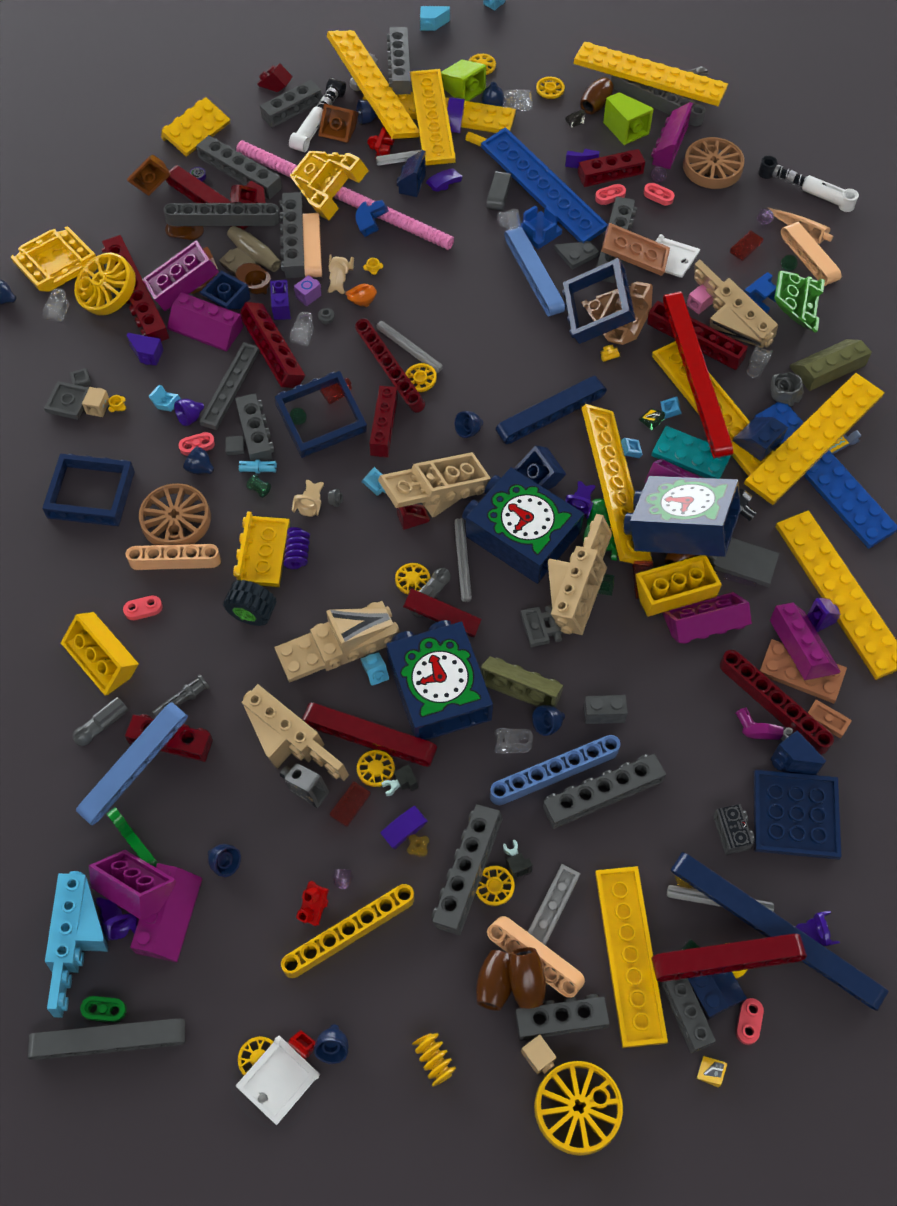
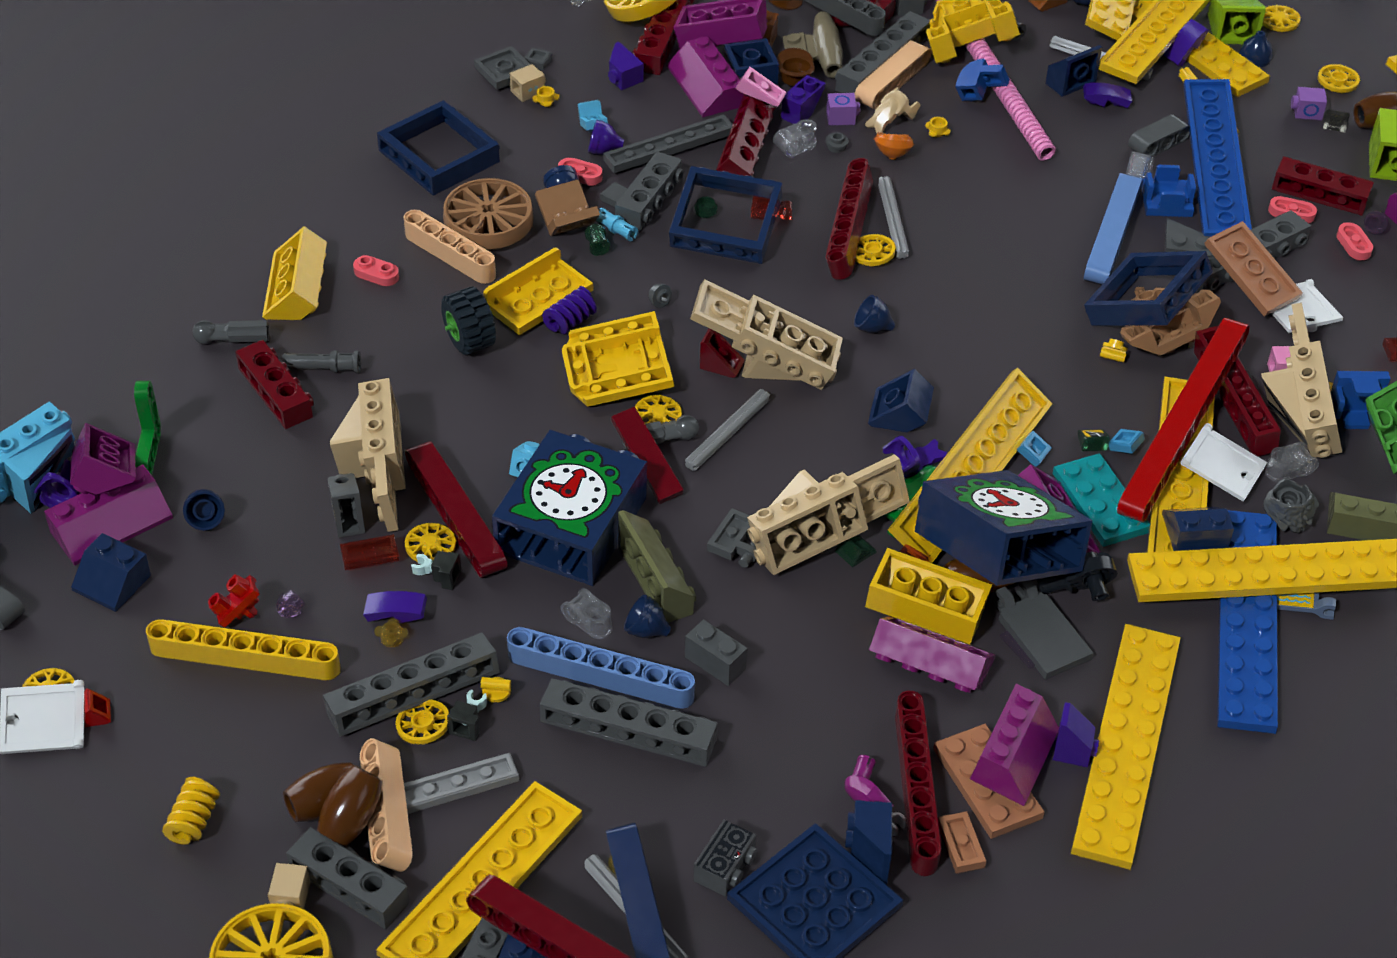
camera: 40 degrees right, 15 degrees down
(131, 763) = (222, 372): medium blue beam -> none
(211, 950) = (110, 572): none -> dark blue slope
(219, 478) = (565, 207): none -> medium nougat bracket
(256, 310) = (760, 87): none -> bright pink slope
(309, 502) = (632, 283): tan hair -> none
(331, 1045) = (116, 724): dark blue helmet -> none
(339, 641) = (517, 408): tan wedge -> none
(357, 556) = (616, 360): none -> yellow wedge
(381, 143) = (1072, 27): red hips -> none
(383, 421) = (785, 260): dark red brick -> none
(513, 830) = (496, 688): none -> yellow plate
(519, 100) = (1283, 68): clear piece -> none
(522, 523) = (819, 424): brick -> none
(550, 410) = (981, 359): dark blue beam -> none
(554, 115) = (1309, 103): none -> medium lavender brick
(573, 158) = (1283, 148): dark purple slope -> none
(733, 386) = (1223, 462): none -> white container

